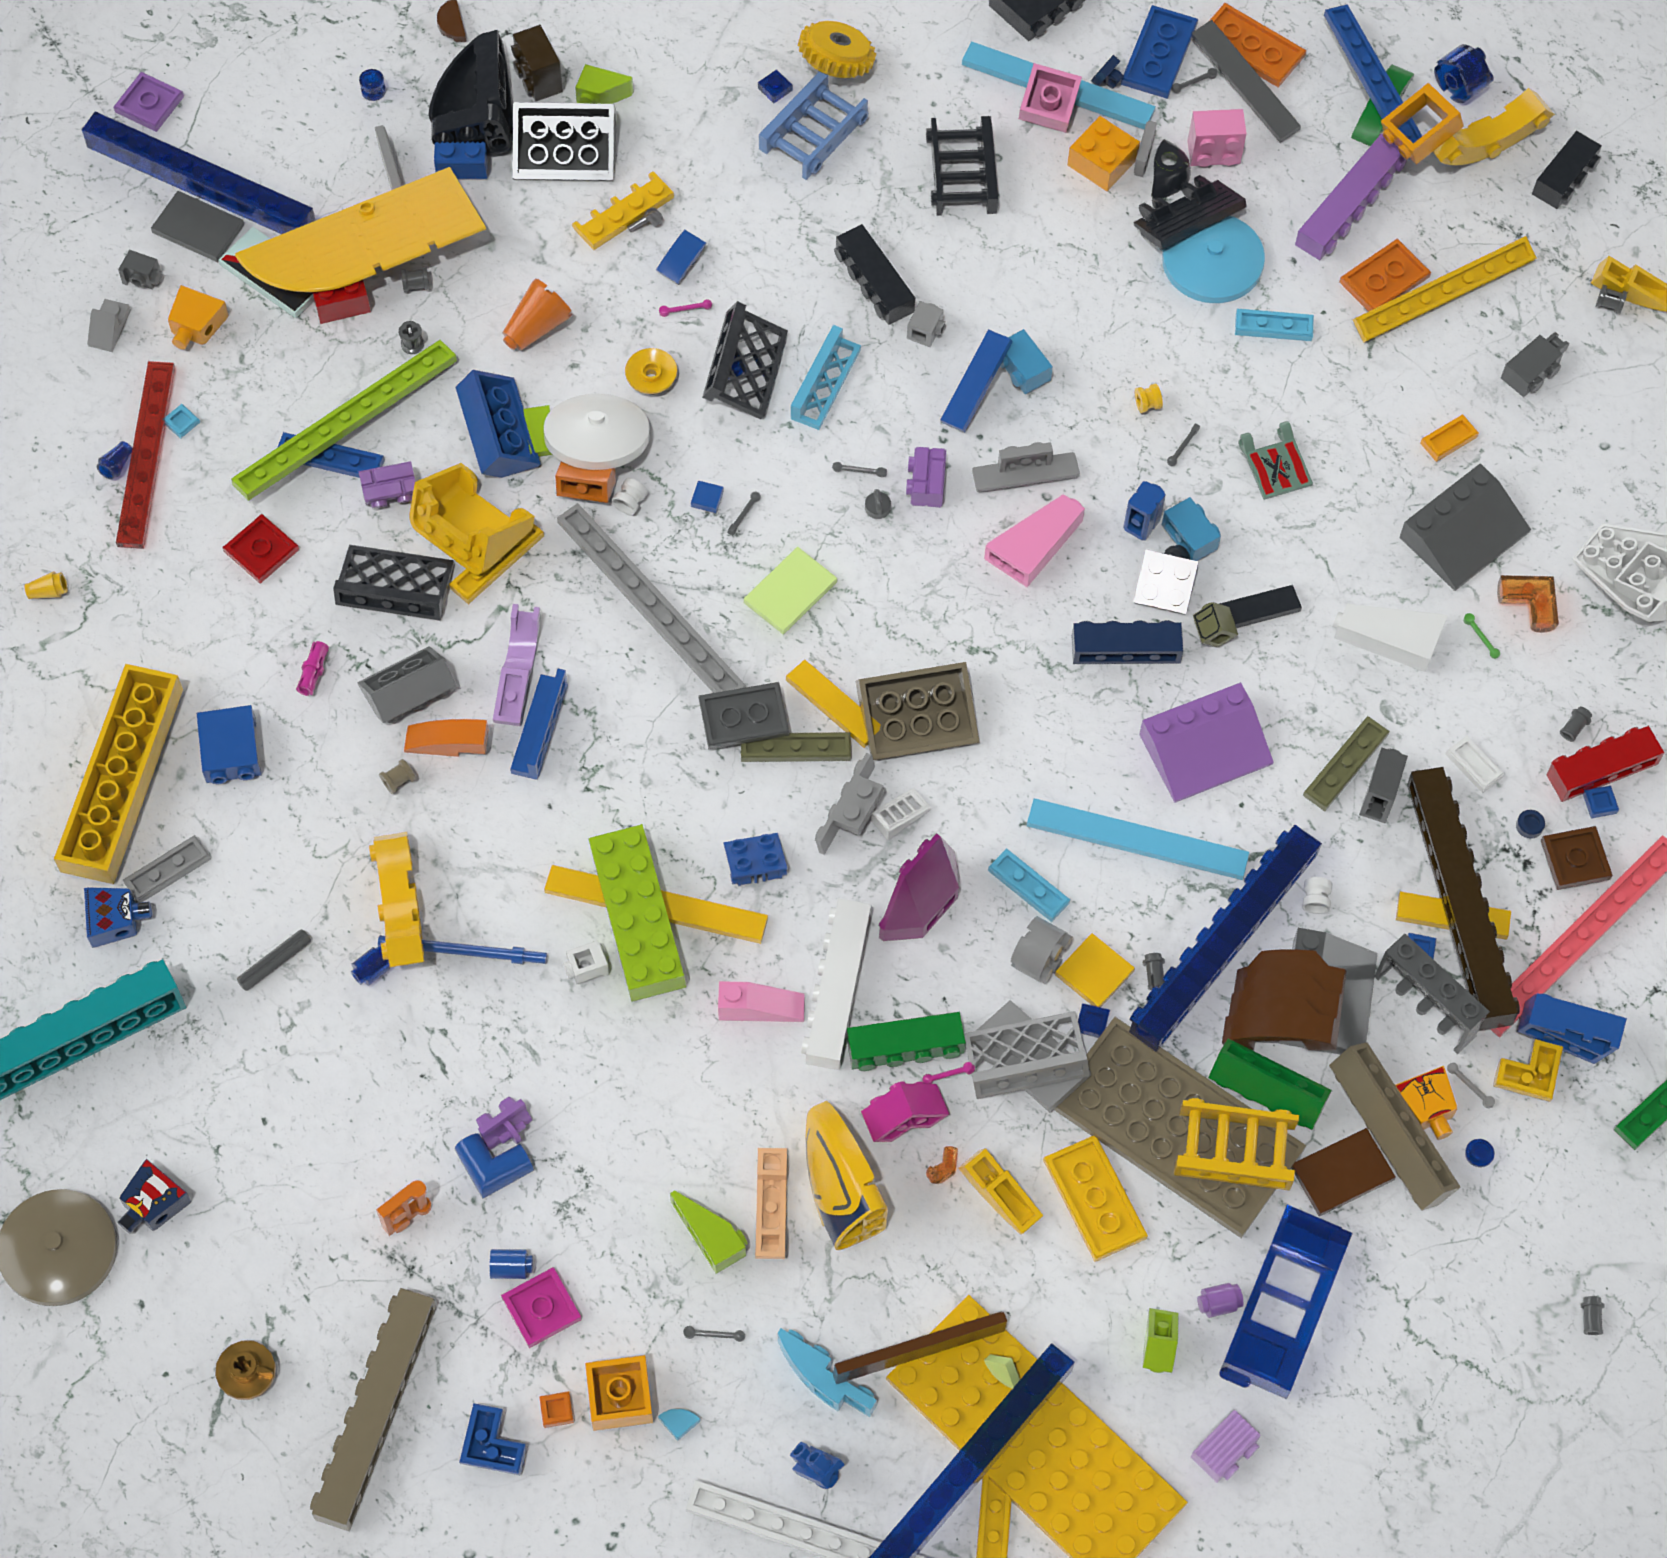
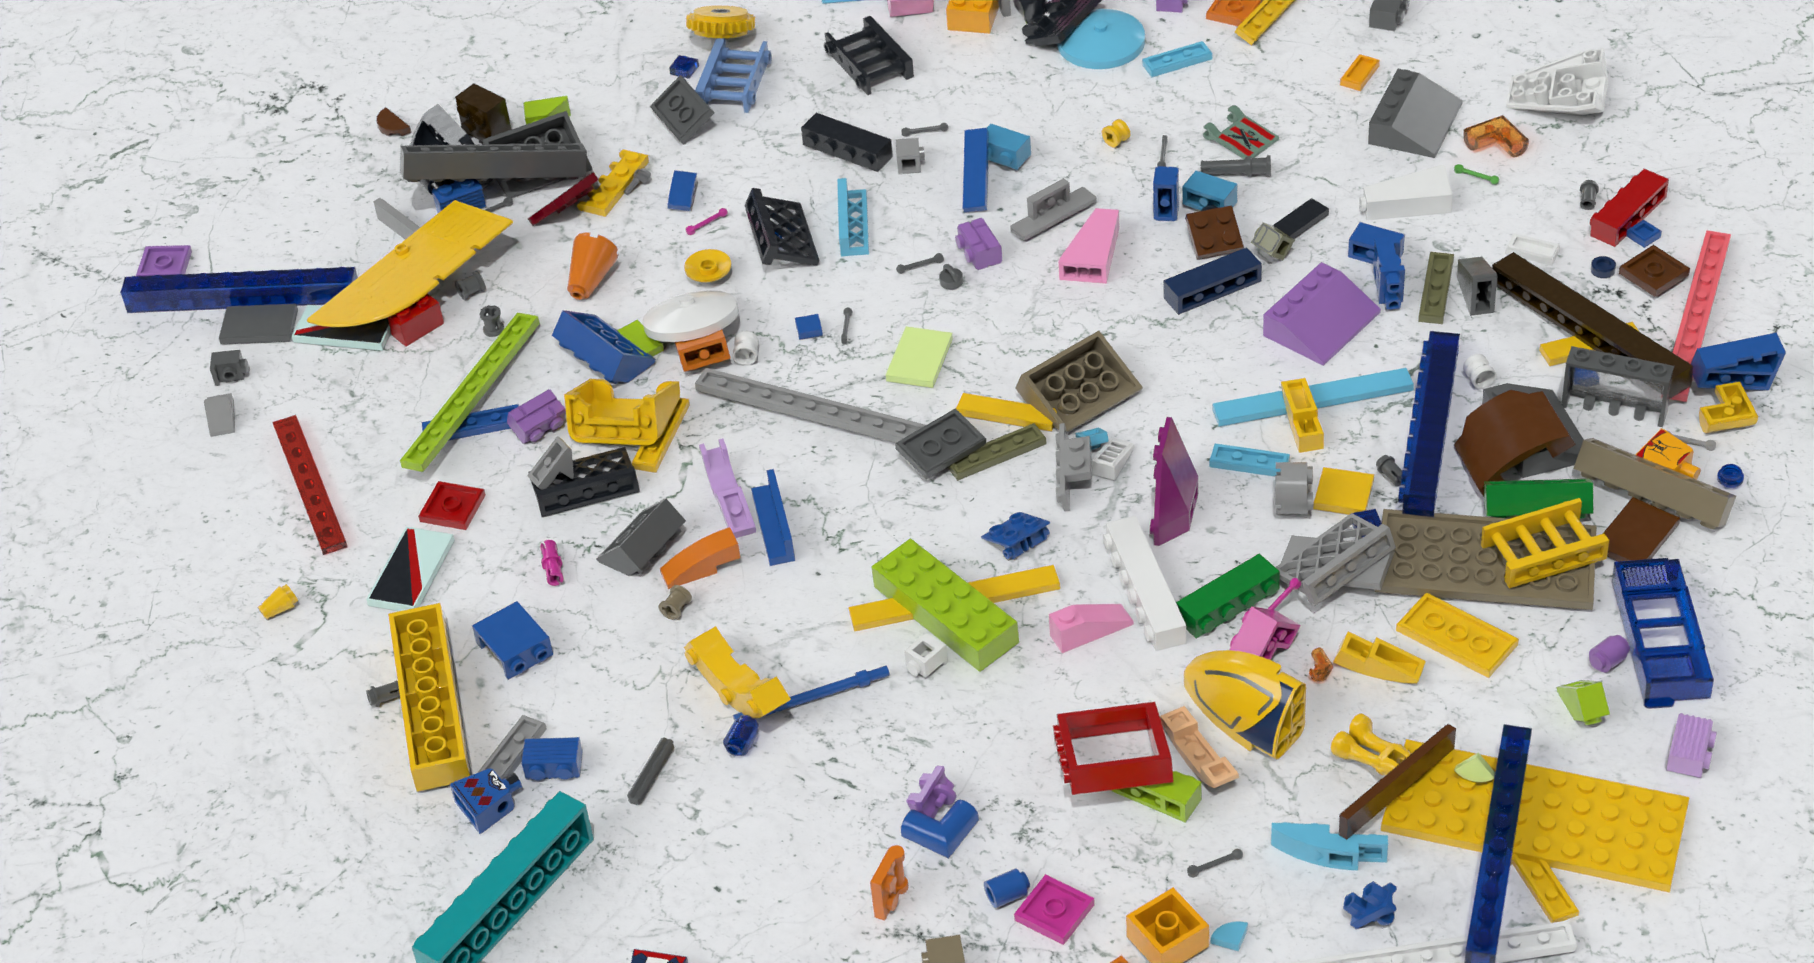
camera: 20 degrees left, 20 degrees down
(81, 743) = (382, 693): none -> dark grey pin
(113, 462) = (285, 497): clear blue cone -> none
(181, 421) = (326, 451): medium azure tile -> none
(184, 608) = (410, 569): none -> tile
(192, 901) = (552, 758): none -> blue brick
(195, 317) = (296, 377): light orange torso -> none
(365, 556) = (555, 460): none -> light grey slope
(376, 89) = (351, 182): clear blue wheel -> none
(504, 141) = (492, 161): none -> dark grey brick
(510, 184) = (507, 202): none -> dark grey hinge
(564, 212) = (565, 199): none -> dark red wing
(671, 1207) = (1117, 773): none -> red window
(737, 149) = (682, 109): none -> dark grey tile
(893, 780) = (1096, 435): none -> medium azure plate
(930, 1267) = (1361, 733): none -> yellow piece
(945, 286) = (906, 131): none -> dark grey hinge
(1109, 859) = (1302, 415): none -> yellow slope
(1252, 508) = (1248, 166): none -> dark grey pin
(1299, 735) = (1388, 271): none -> blue hips
(1317, 681) = (1362, 241): none -> blue brick

